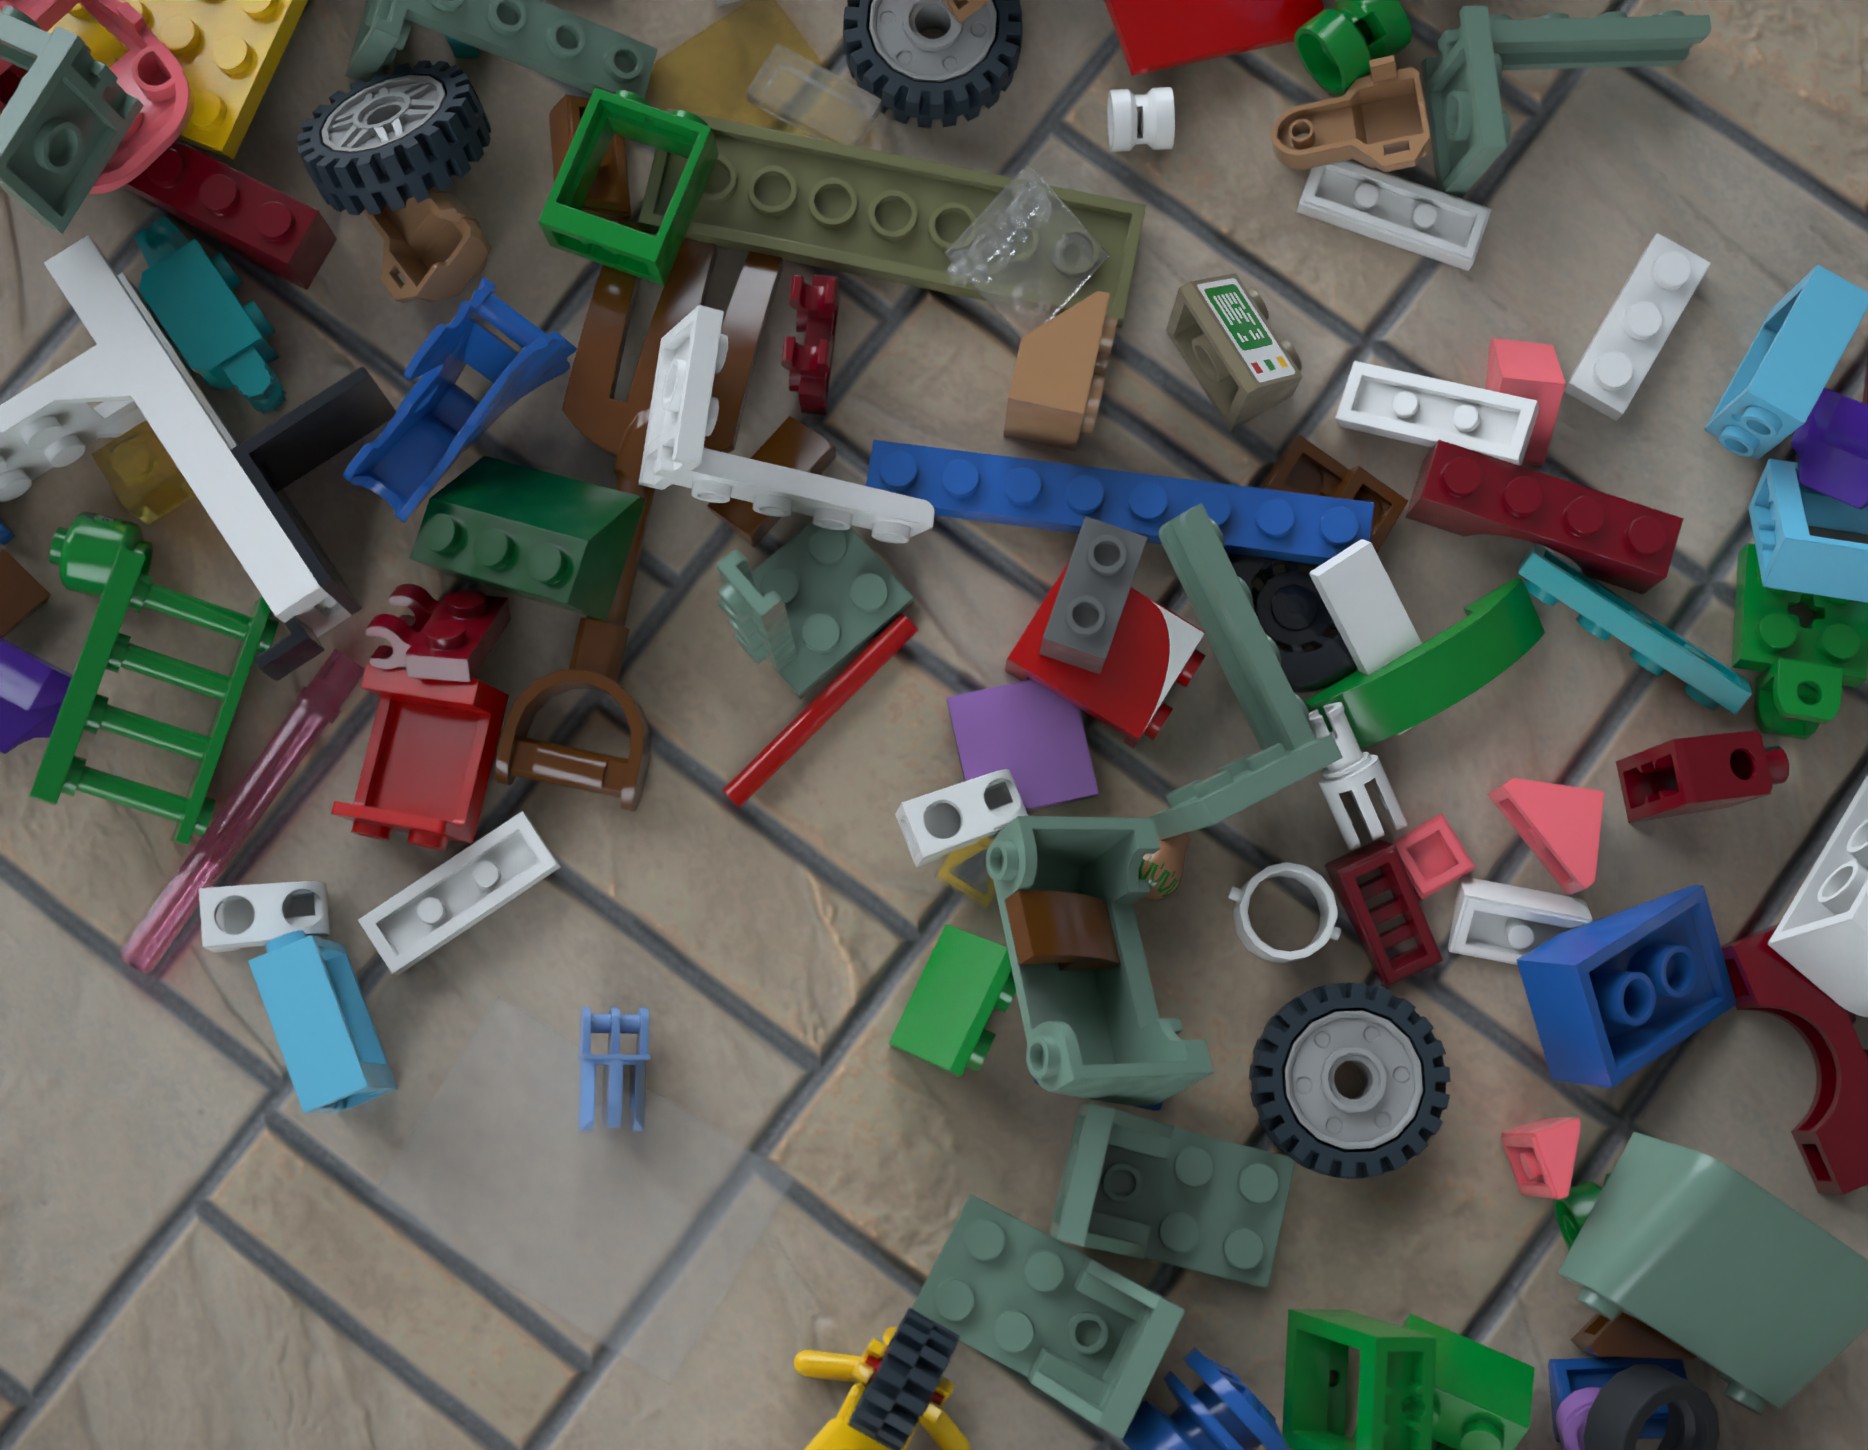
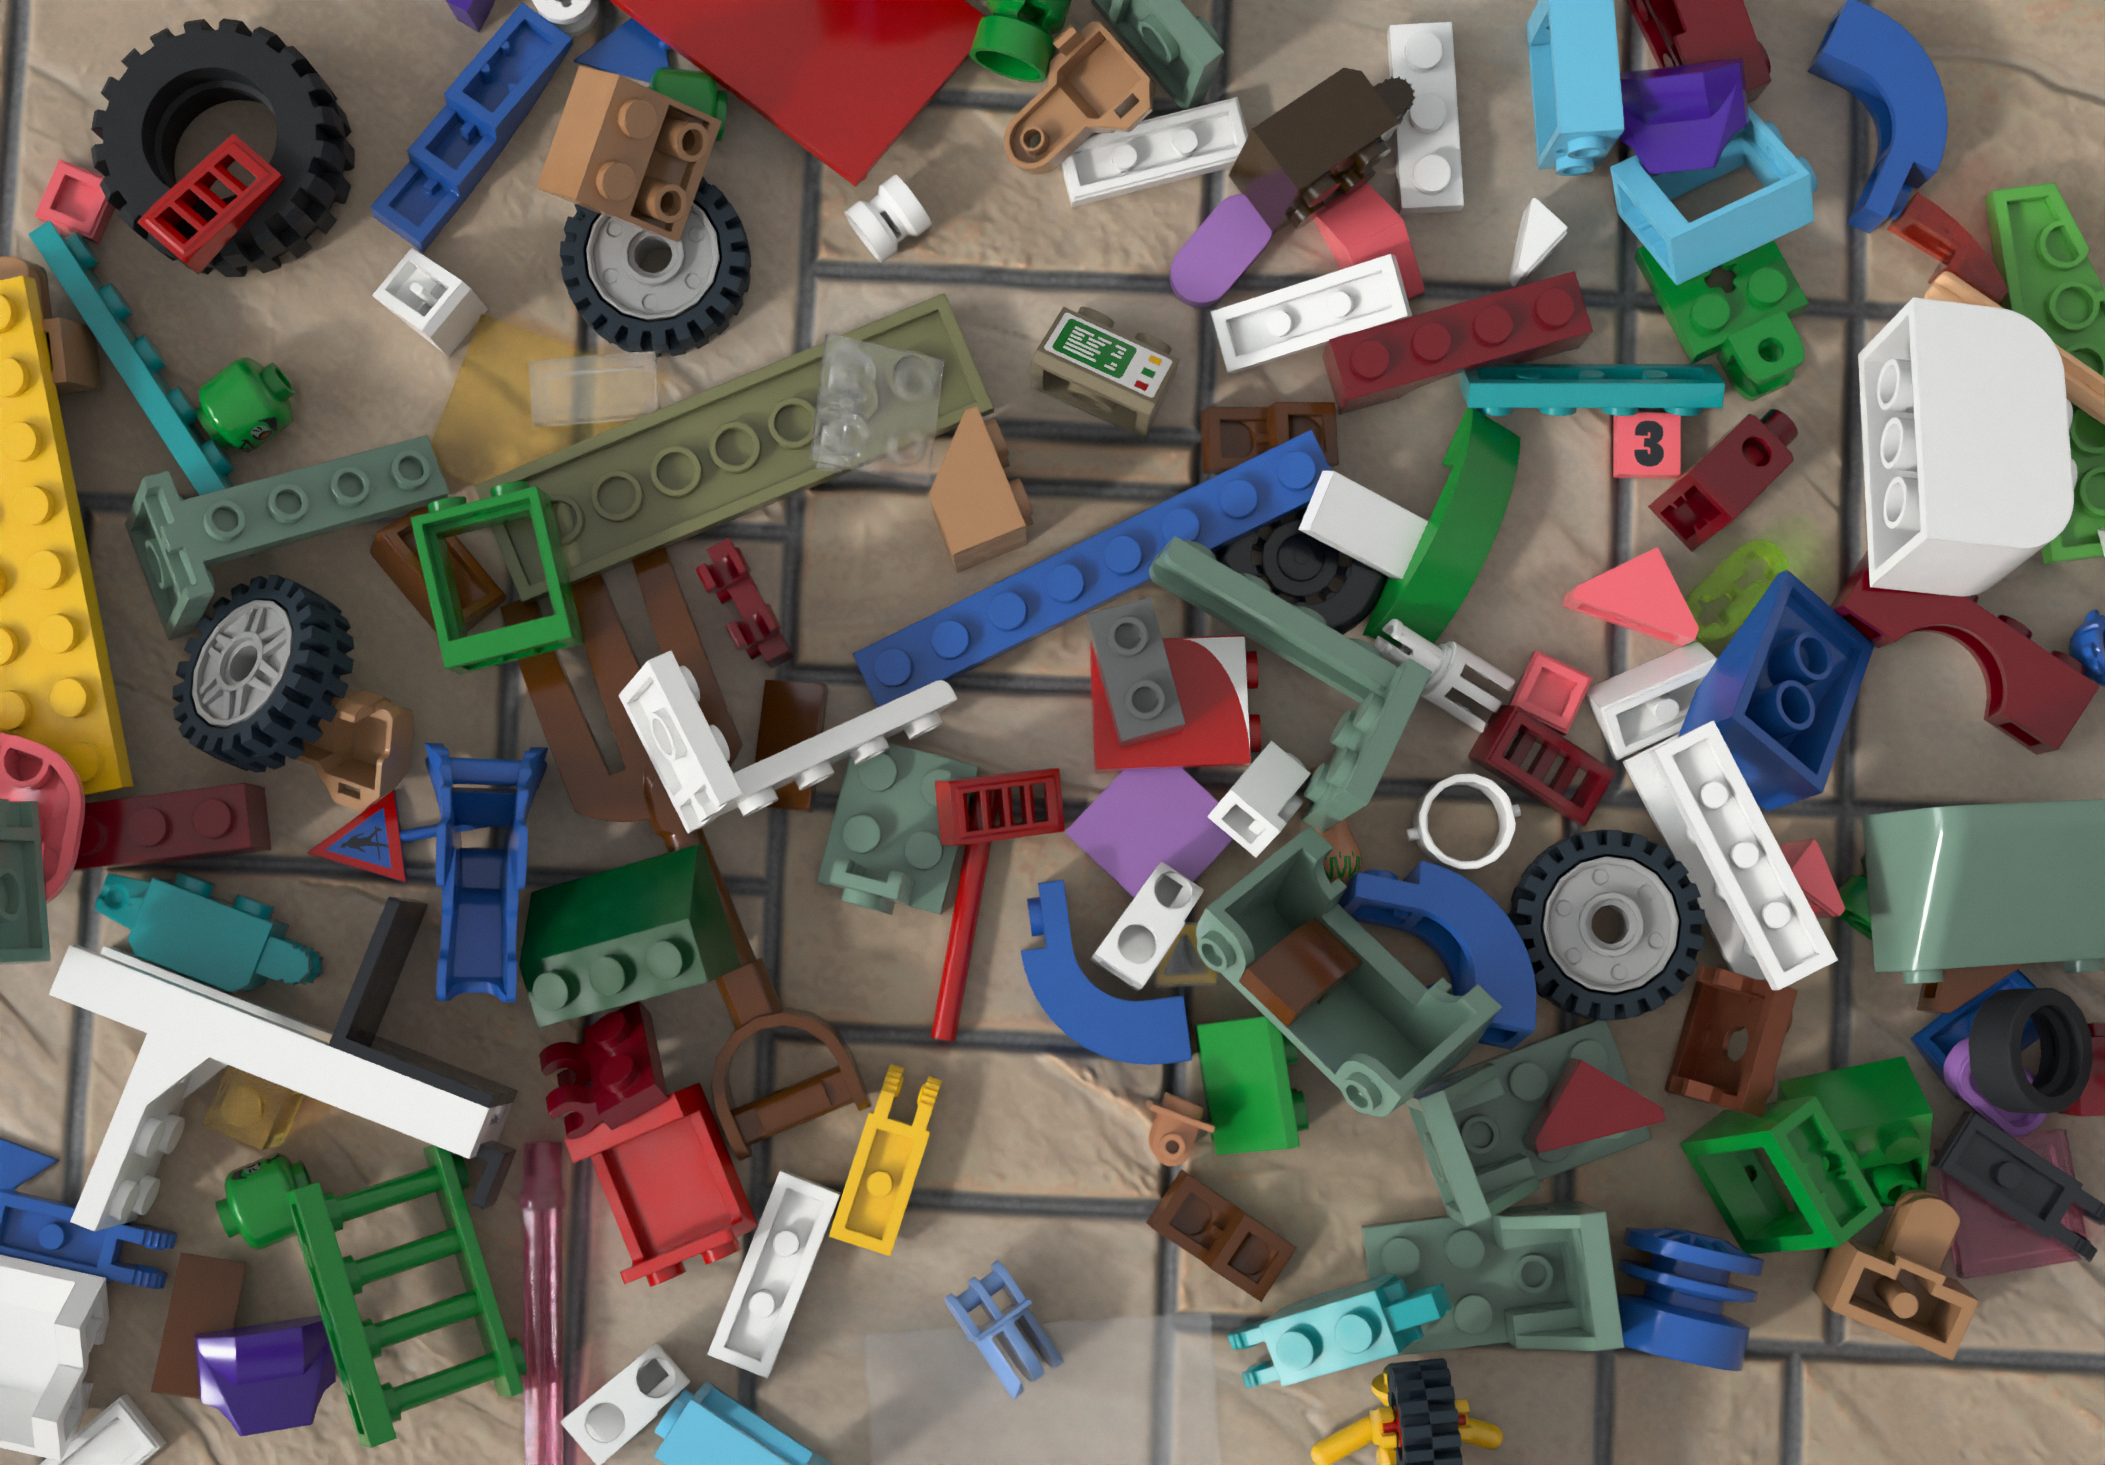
camera: 35 degrees left, 5 degrees up
(392, 335) = (375, 840): none -> piece
(610, 869) = (884, 1169): none -> yellow hinge
(847, 1118) = (1221, 1235): none -> reddish brown slope
(866, 614) = (953, 807): none -> red slope
(868, 995) = (1175, 1128): none -> nougat hinge
(875, 880) = (1112, 1027): none -> blue arch
(891, 1262) = (1340, 1329): none -> hinge
(1128, 775) = (1261, 799): none -> white brick
(1223, 997) = (1464, 931): none -> blue arch
(1232, 1218) = (1588, 1107): none -> dark red slope
(1395, 322) = (1219, 252): none -> medium lavender tile
(1403, 1215) = (1719, 1007): none -> copper piece
(1497, 1089) = (1731, 856): none -> white fence
(1534, 281) = (1319, 146): none -> dark brown hinge
(1641, 863) = (1723, 580): none -> clear neon green beam
(1648, 708) = (1647, 446): none -> coral tile
(1669, 480) = (1536, 240): none -> white slope

